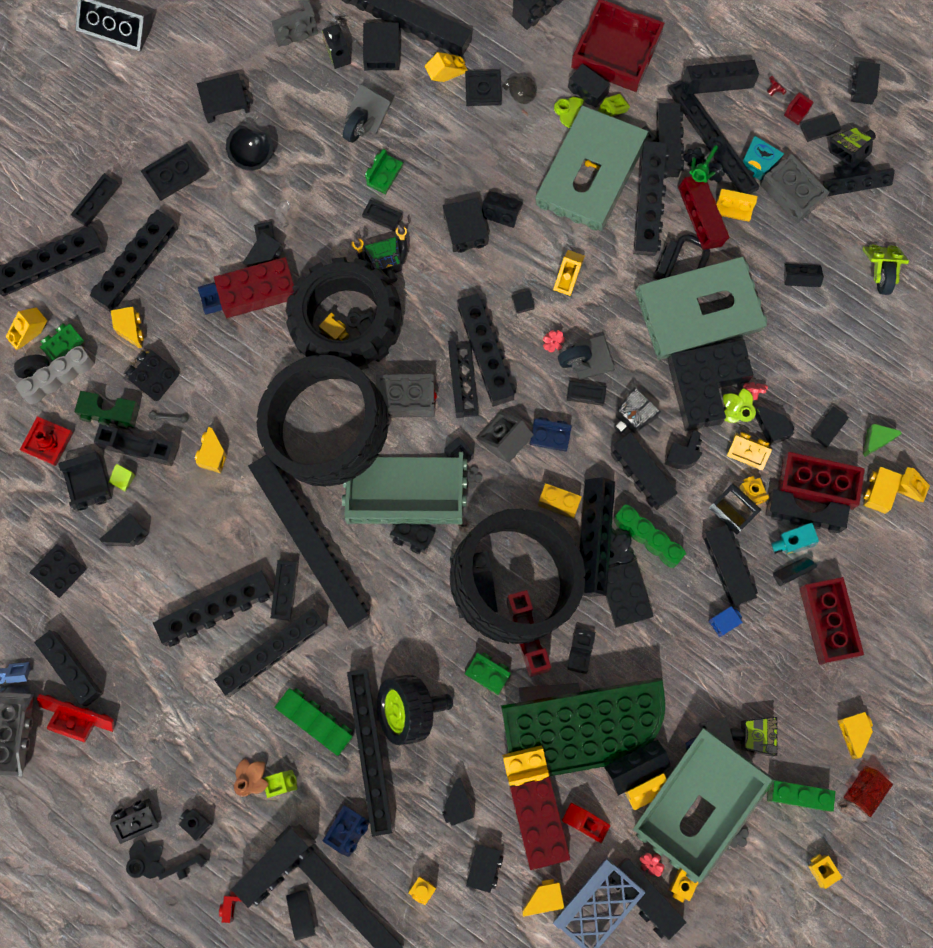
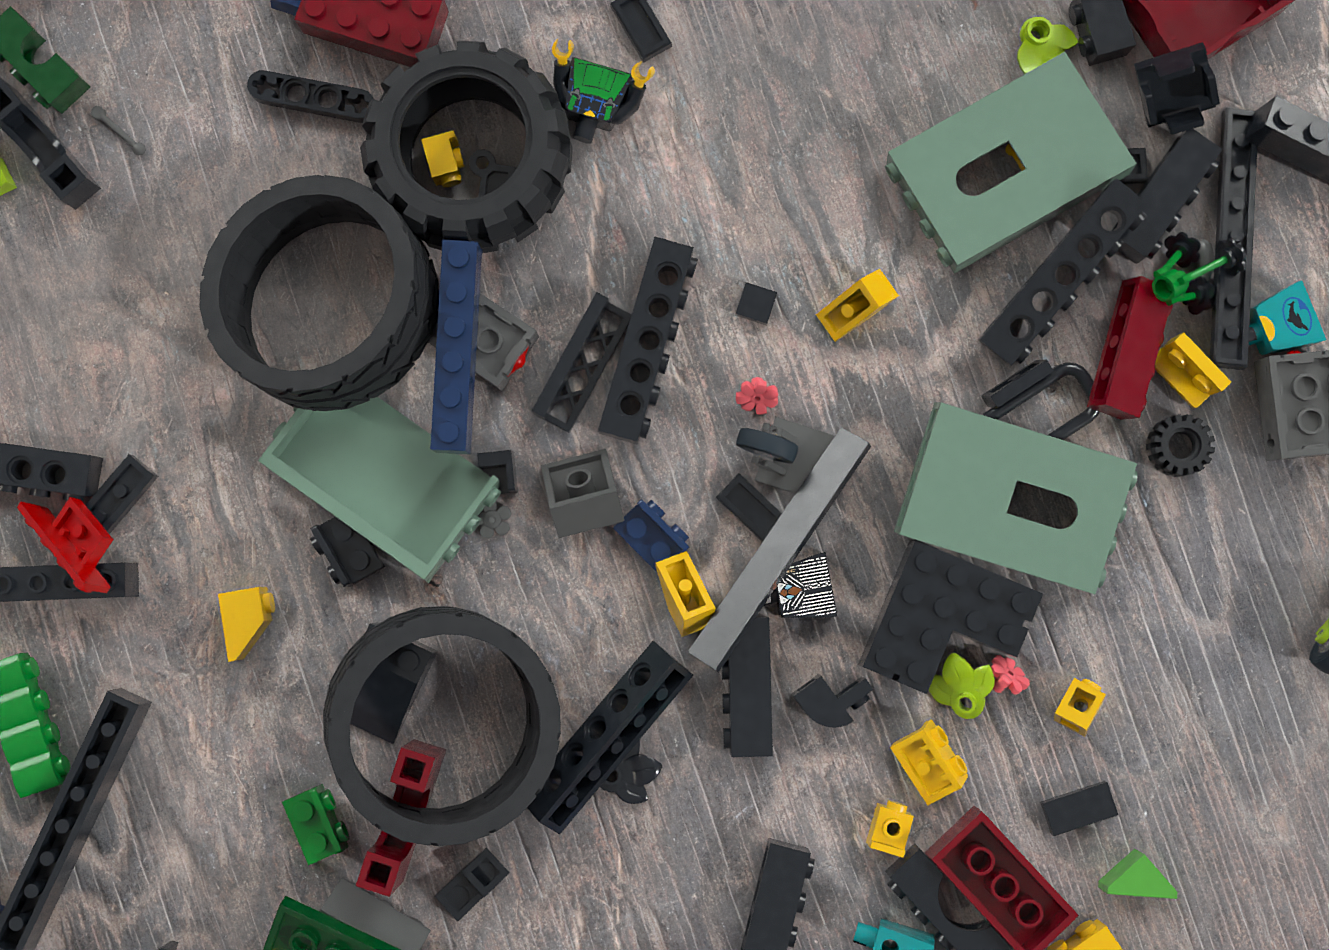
camera: 35 degrees right, 10 degrees up
(151, 374) = (132, 49): black bracket -> none
(211, 454) = (142, 228): yellow slope -> none
(250, 340) = (313, 91): none -> black beam
(283, 610) = (74, 540): none -> red bracket
(308, 542) = (189, 468): black brick -> none
(386, 598) = (244, 619): none -> yellow slope
(404, 403) = (456, 347): none -> dark blue brick
(407, 709) = (155, 804): black wheel -> none
(466, 225) = (752, 125): black panel -> none
(501, 209) = (826, 134): black bracket -> none
(559, 501) = (592, 646): yellow brick -> none
(585, 449) = (685, 593): none -> yellow slope
(613, 399) = (779, 549): none -> tile
(614, 105) = (1115, 83): lime bracket -> none
(627, 595) = (595, 849): black plate -> none
(642, 90) = (1177, 88): none -> black panel
(653, 539) = (690, 799): green brick -> none
(731, 516) = (828, 837): black tile -> none
(763, 233) = (1200, 445): none -> black tyre
(774, 425) = (994, 752): black slope -> none
(796, 387) = (1080, 691): none -> yellow brick
(803, 275) = (1214, 548): black slope -> none

